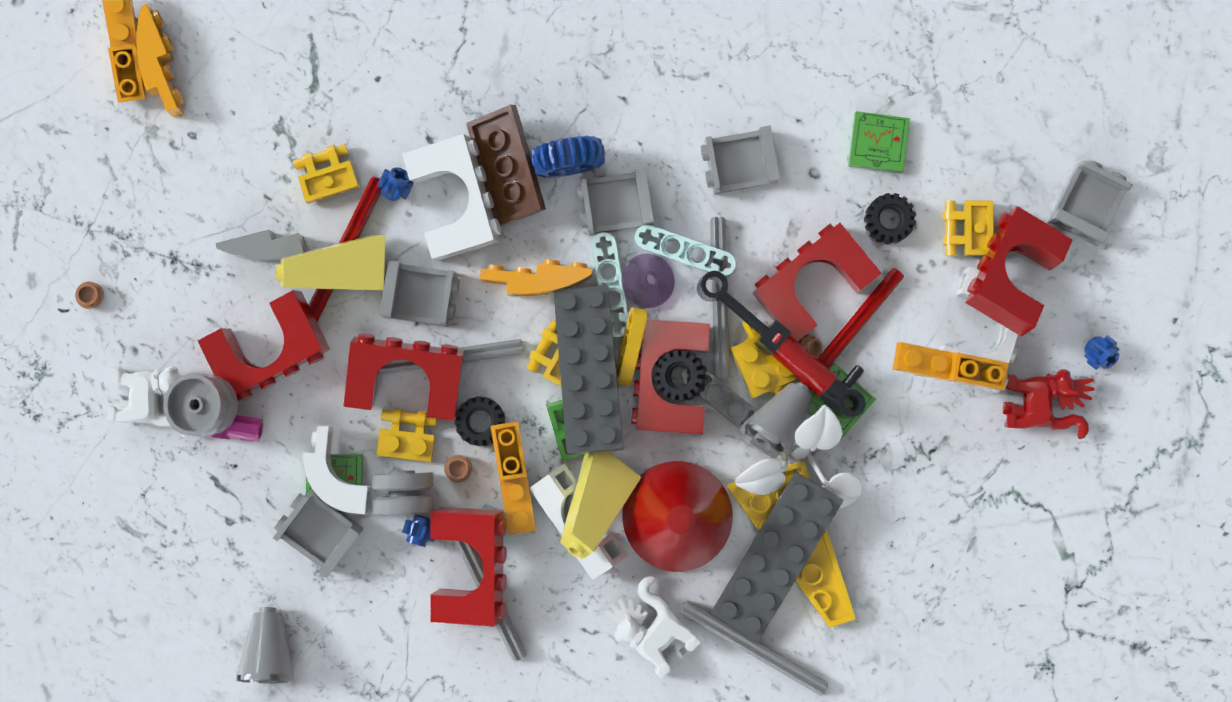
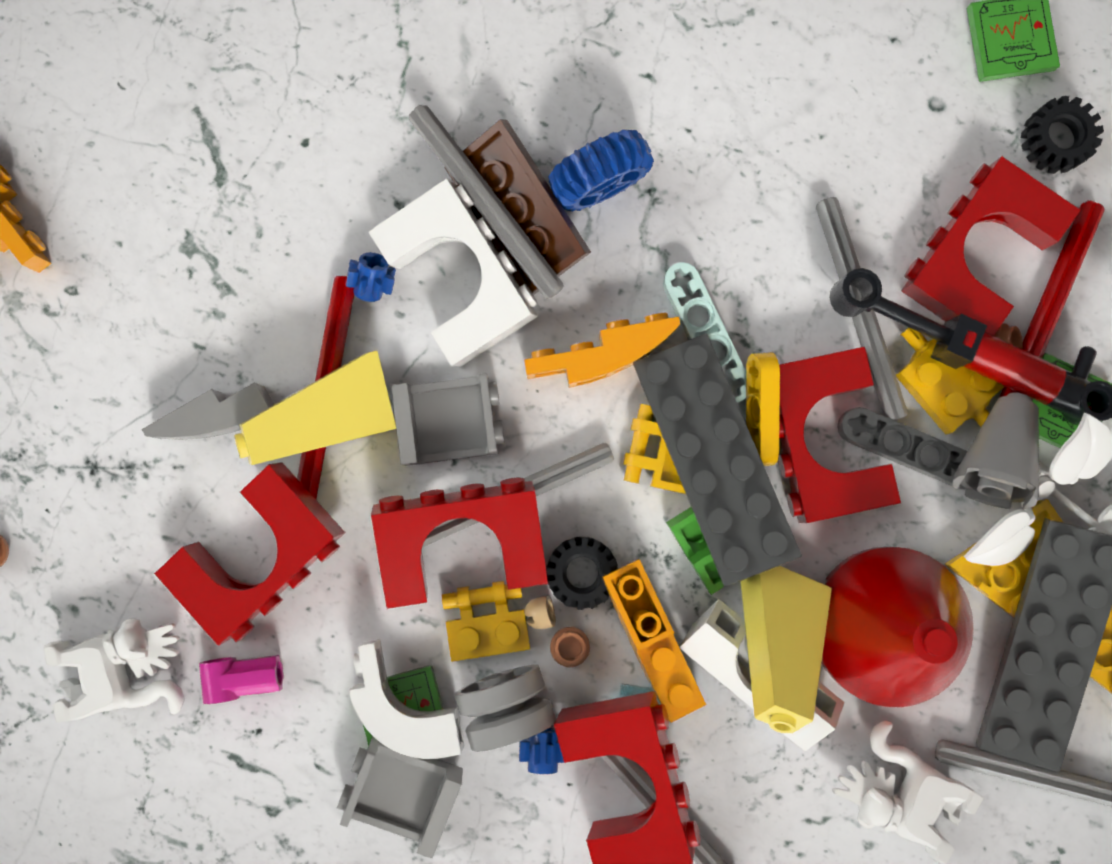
camera: 15 degrees left, 0 degrees up
(200, 405) = (181, 666): light grey wheel -> none
(326, 181) = (275, 300): yellow plate -> none
(445, 439) = (540, 613): none -> tan hinge
(486, 155) = (486, 201): none -> light grey axle
(615, 202) = (682, 217): light grey panel -> none
(639, 289) = (746, 323): clear purple dish -> none
(665, 370) = (845, 455): black tyre -> none
(686, 248) = (798, 249): light aqua beam -> none
(741, 161) = (837, 112): light grey panel -> none

